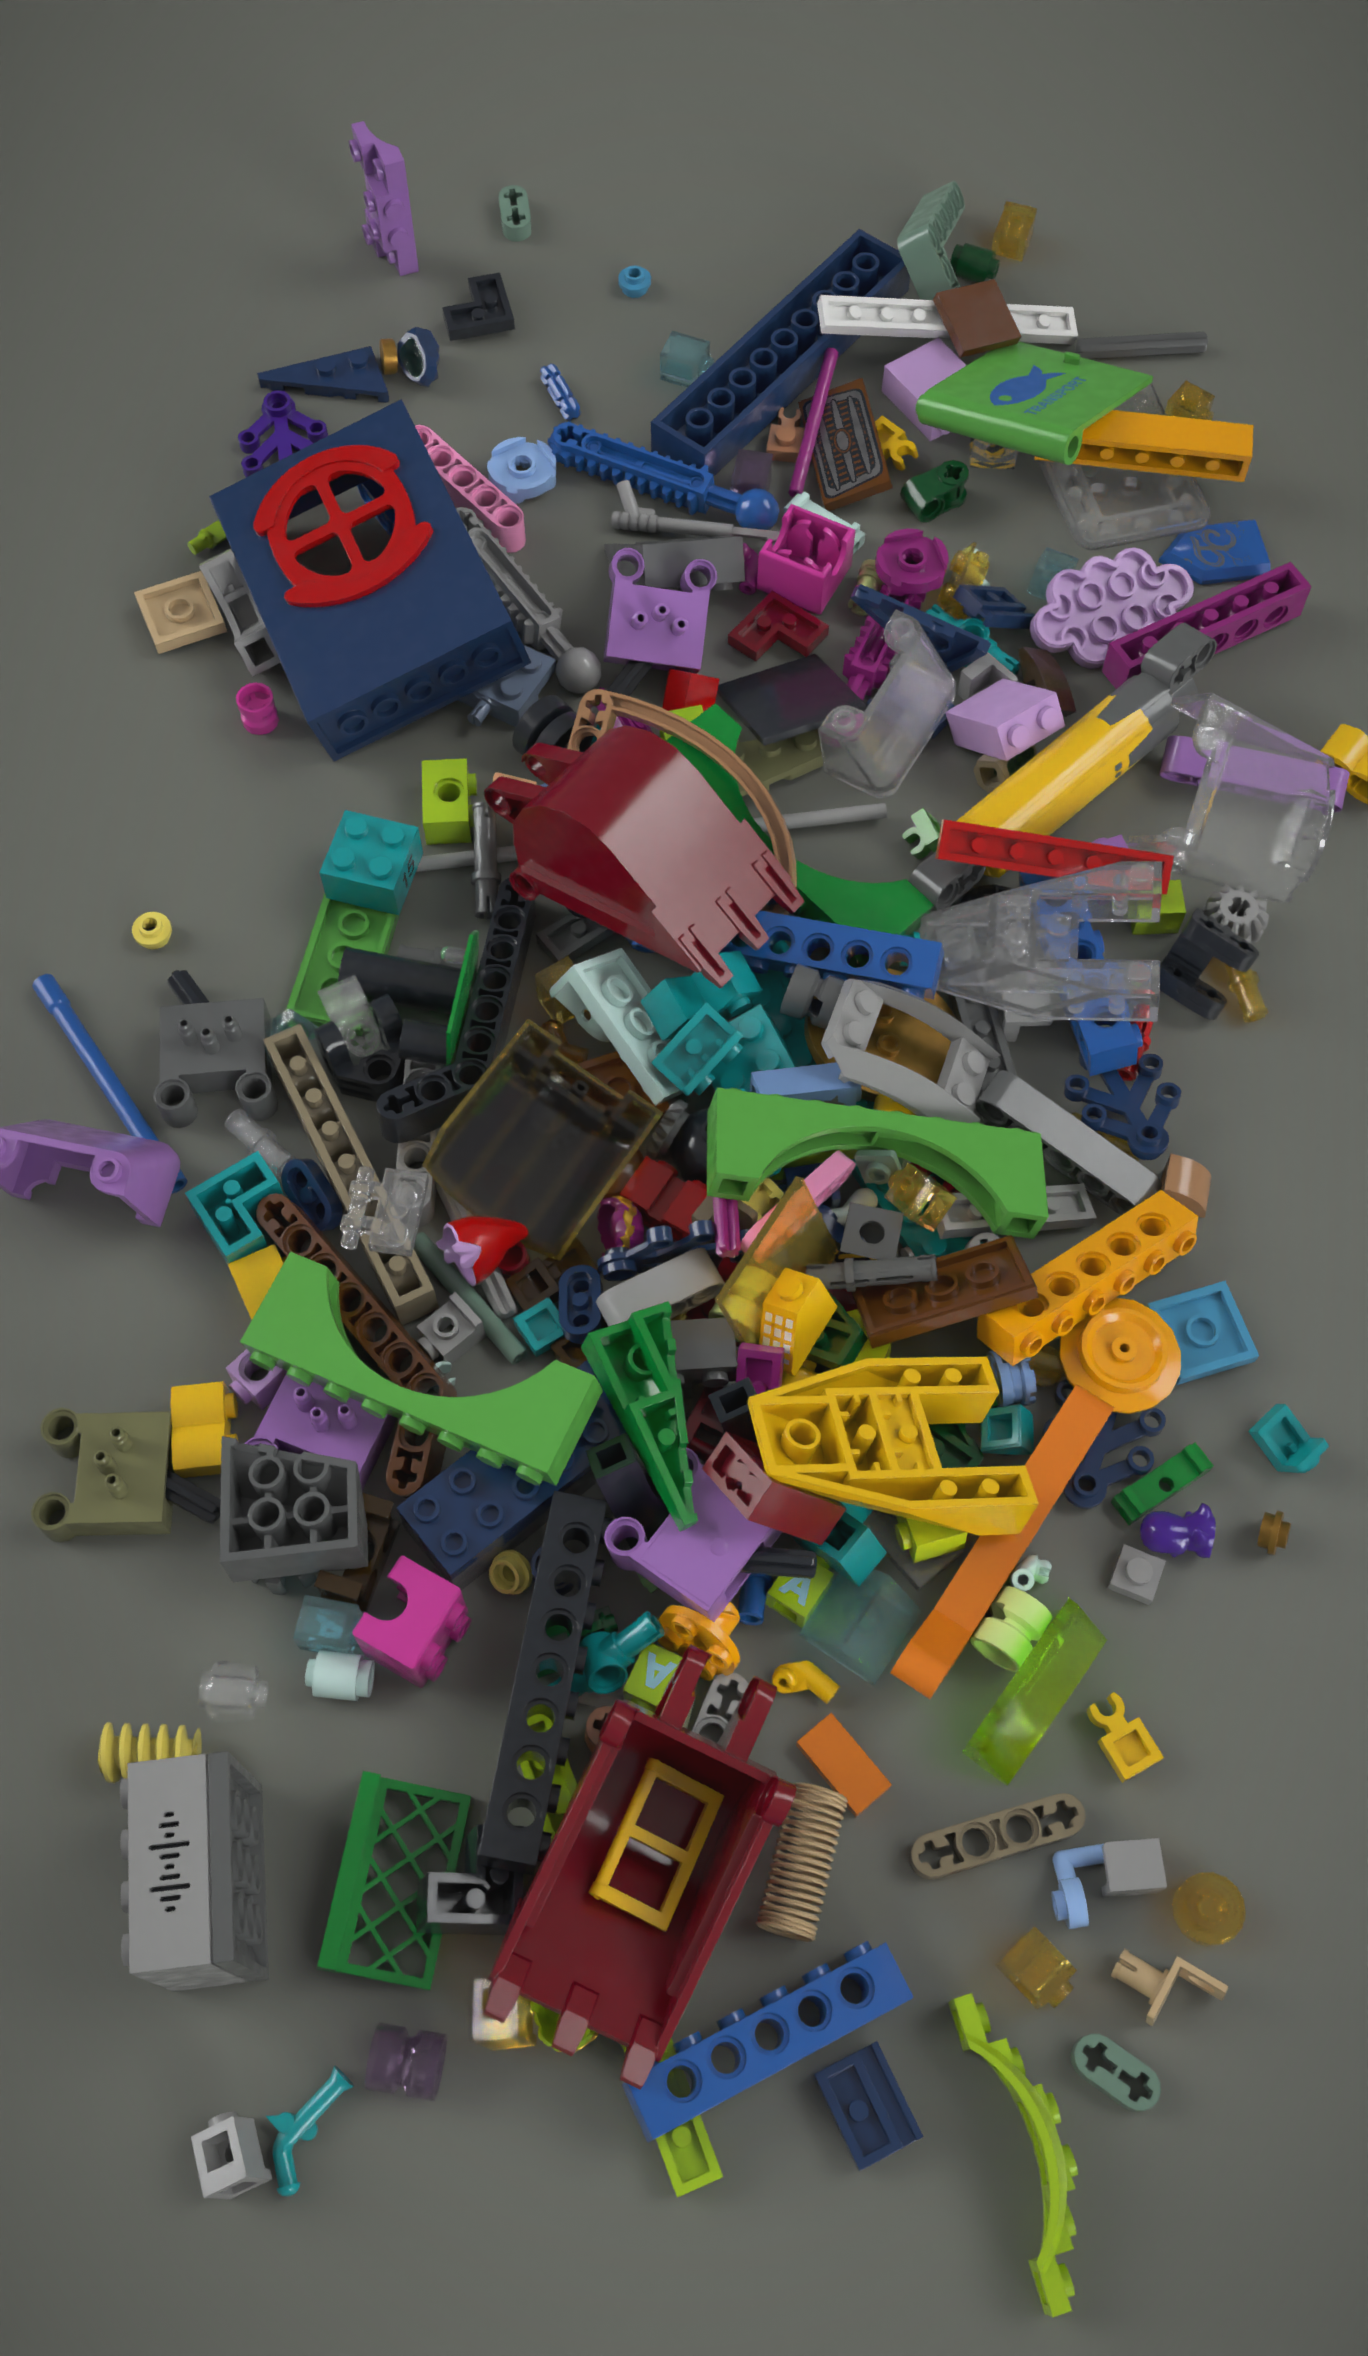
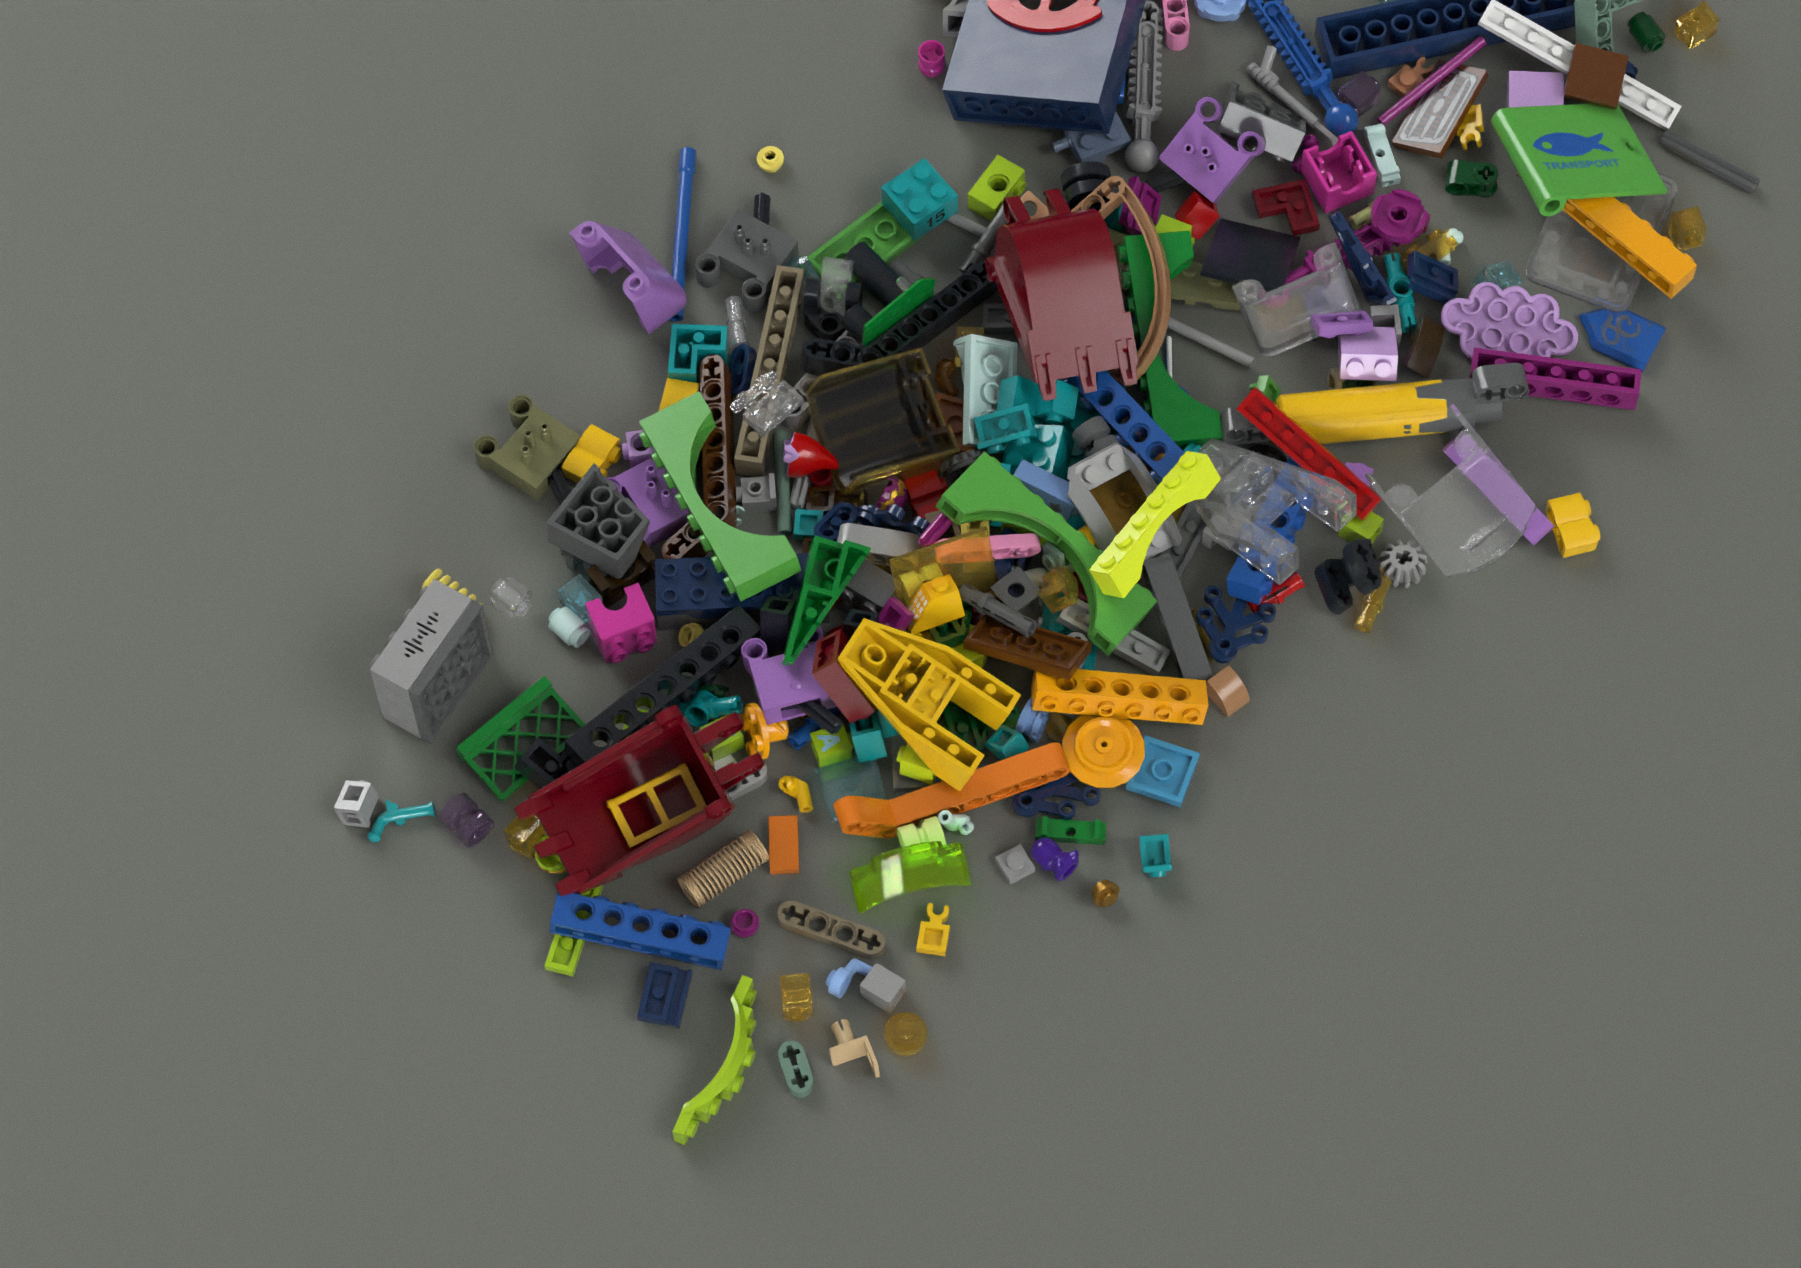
camera: 40 degrees right, 0 degrees up
(883, 1914) = (744, 923): none -> magenta plate
(957, 702) = (1342, 323): none -> medium lavender plate
(982, 1106) = (1123, 559): none -> neon yellow arch

